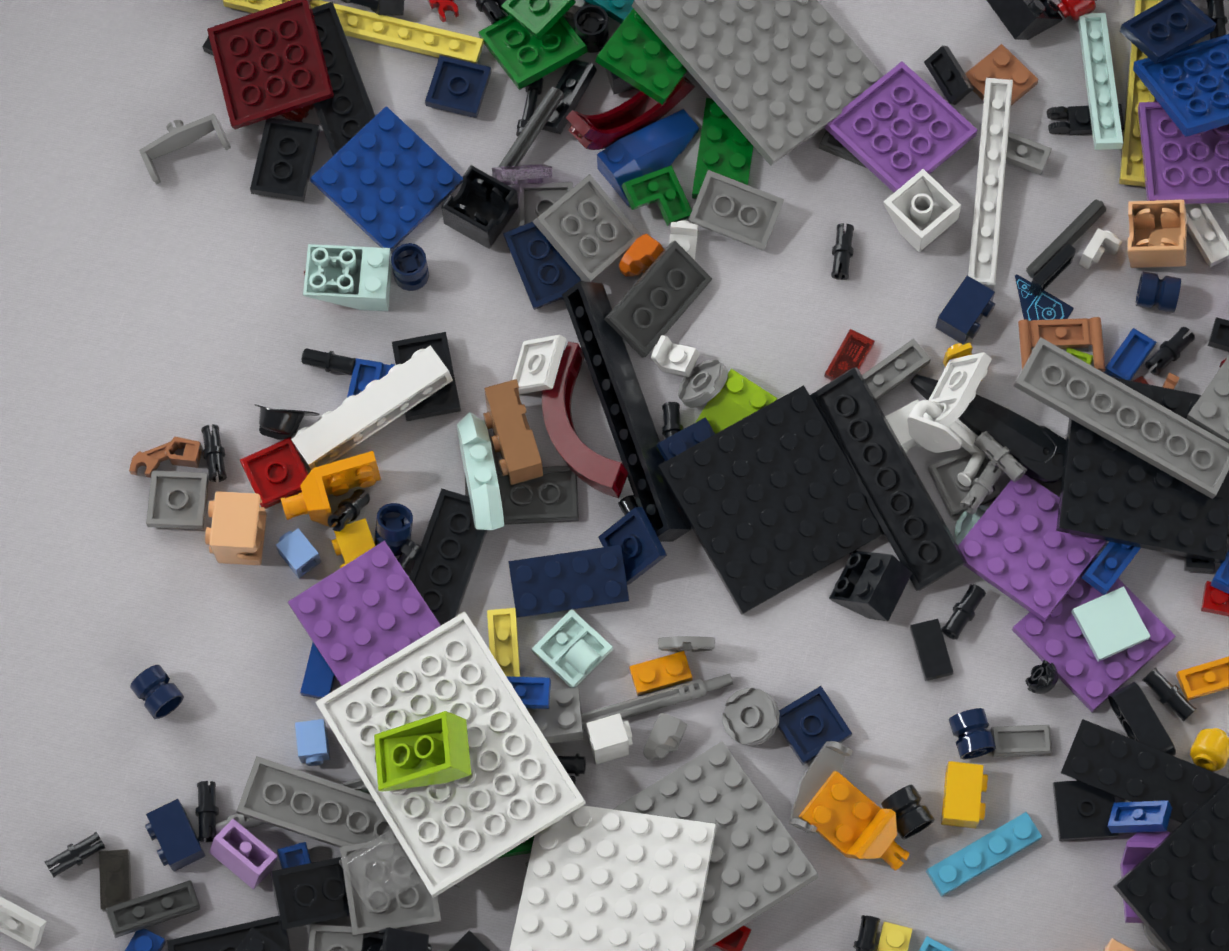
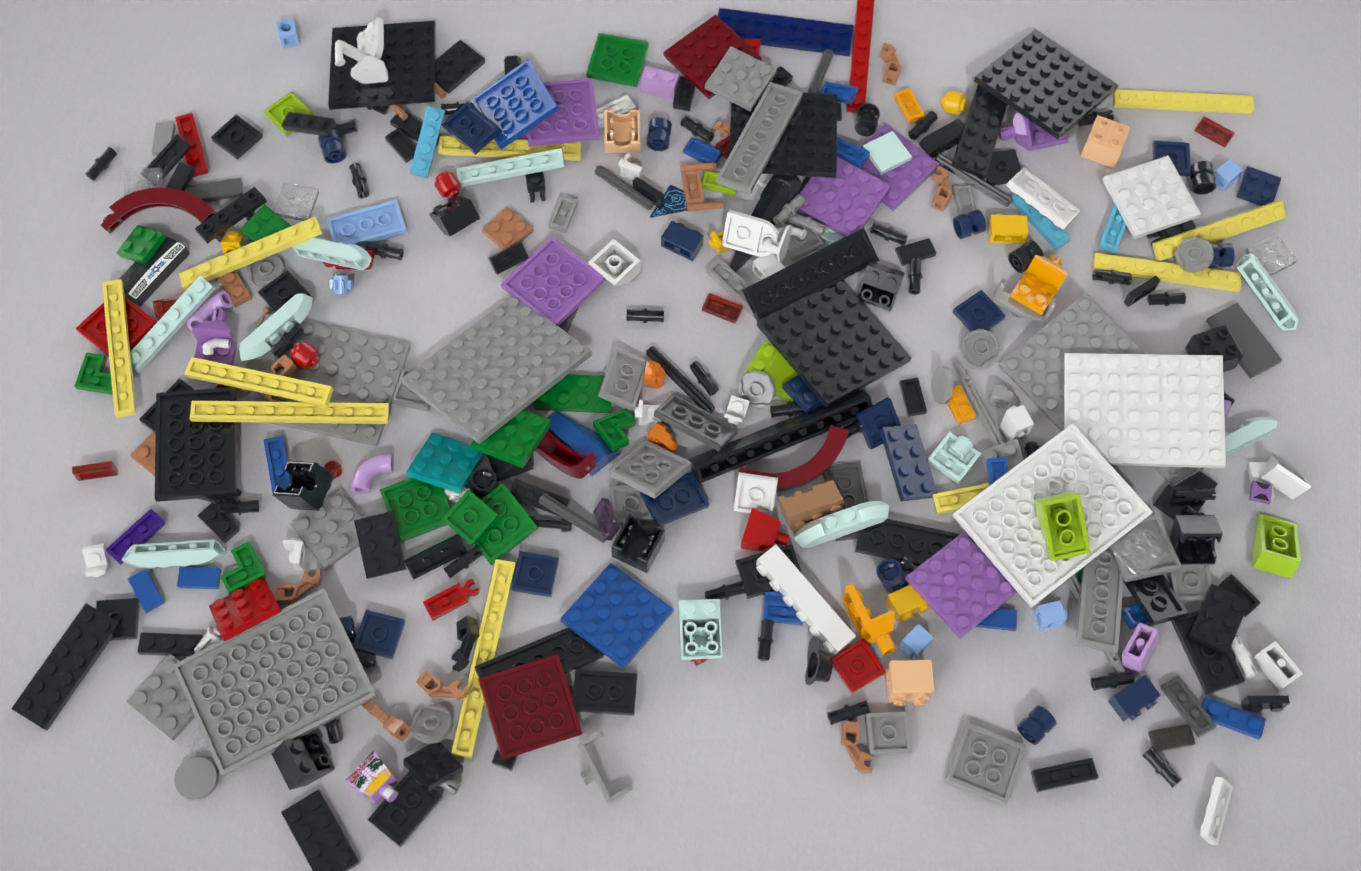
camera: 100 degrees left, 5 degrees down
(85, 720) = (1064, 775): none -> black plate
(117, 619) = (986, 763): none -> light grey plate
(348, 509) = (882, 607): black pin -> none
(403, 314) = (726, 591): none -> black axle
(410, 266) = (688, 587): dark blue wheel -> none
(481, 368) = (762, 532): none -> red torso
(680, 609) = (913, 397): none -> black tile
(732, 320) = (704, 378): none -> black axle
(733, 290) = (680, 380): none -> black axle
(741, 252) = (654, 375): none -> orange rock
(885, 640) = (915, 276): none -> black axle
(990, 181) = (588, 229): white tile -> none
(1013, 856) = (1043, 198): none -> white plate
(1042, 678) = (920, 190): black plate -> none
(1054, 767) = (975, 181): none -> axle
(1059, 711) = (940, 202): none -> nougat piece
(1140, 817) = (1007, 132): blue plate -> none
(1178, 603) = (867, 119): none -> black wheel

